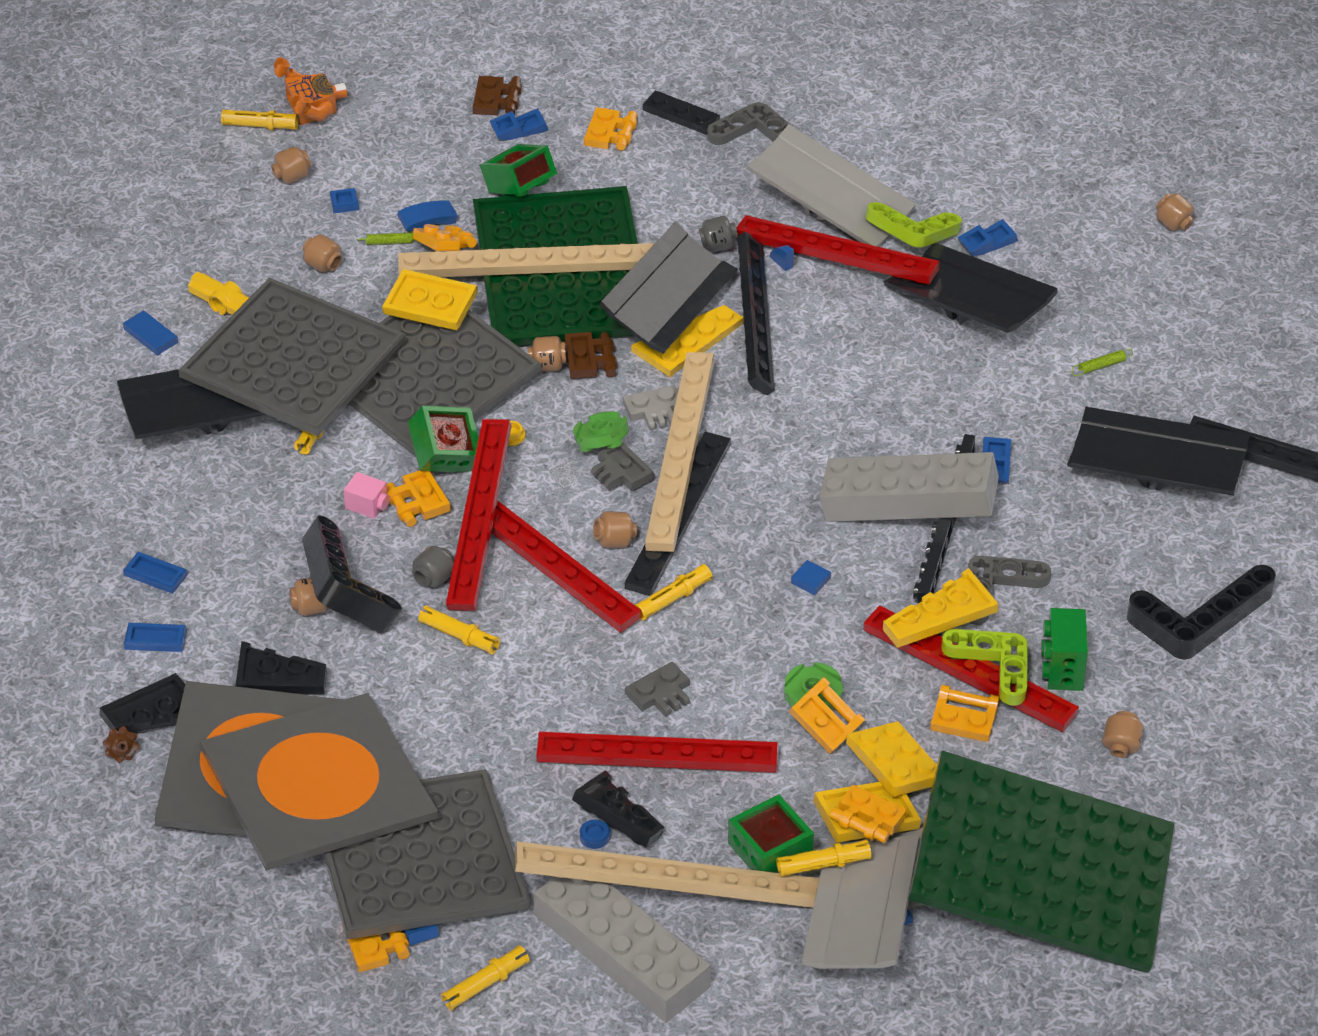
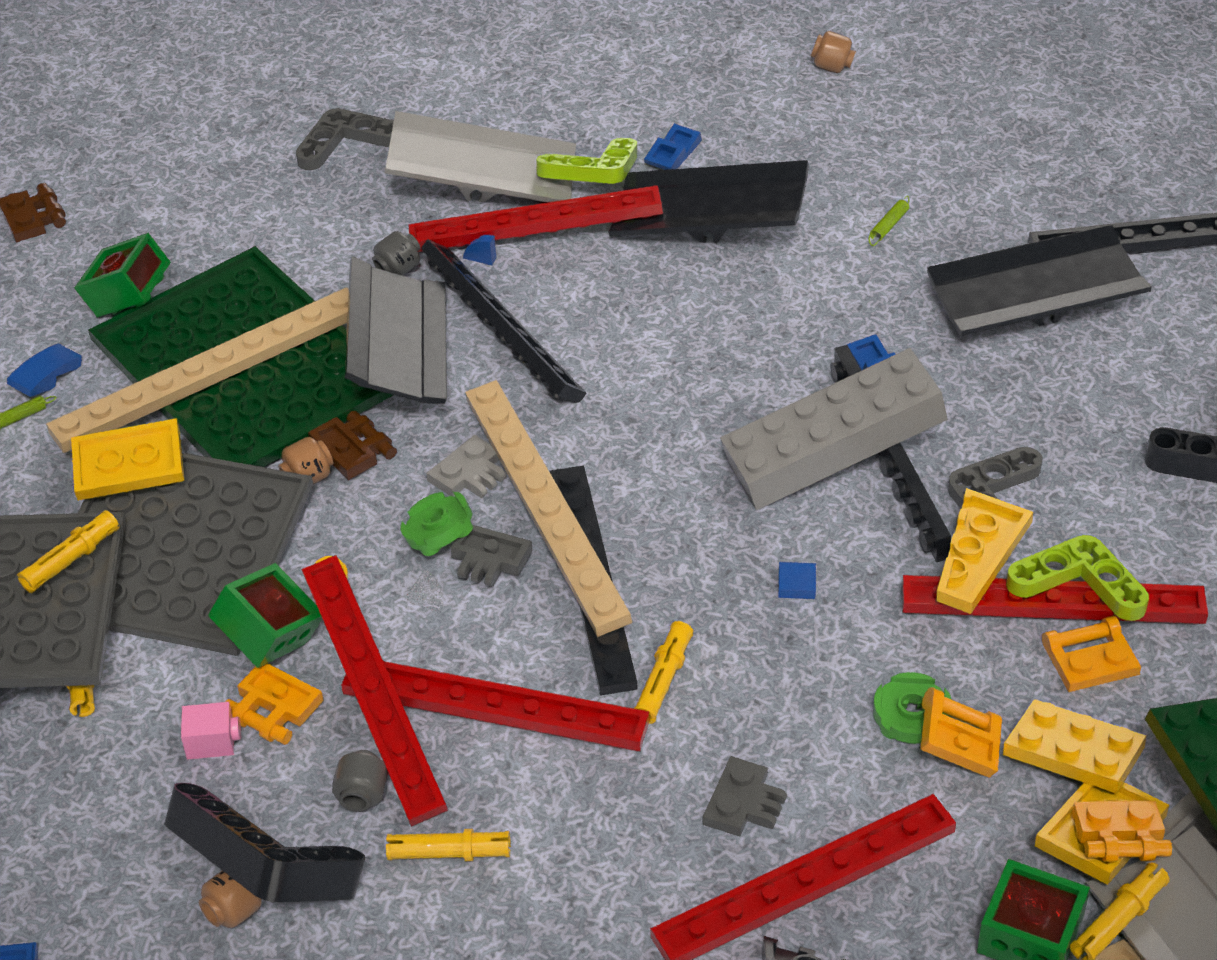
camera: 30 degrees left, 0 degrees up
(356, 341) = (81, 542): none -> yellow pin
(449, 239) = (86, 384): light orange plate -> none
(511, 127) = (74, 238): blue slope -> none
(603, 127) = (178, 201): light orange plate -> none
(614, 529) = (540, 630): medium nougat head -> none
(679, 112) = (251, 151): black plate -> none
(698, 337) = (463, 362): yellow wing -> none
(1065, 649) = (1144, 528): green piece -> none

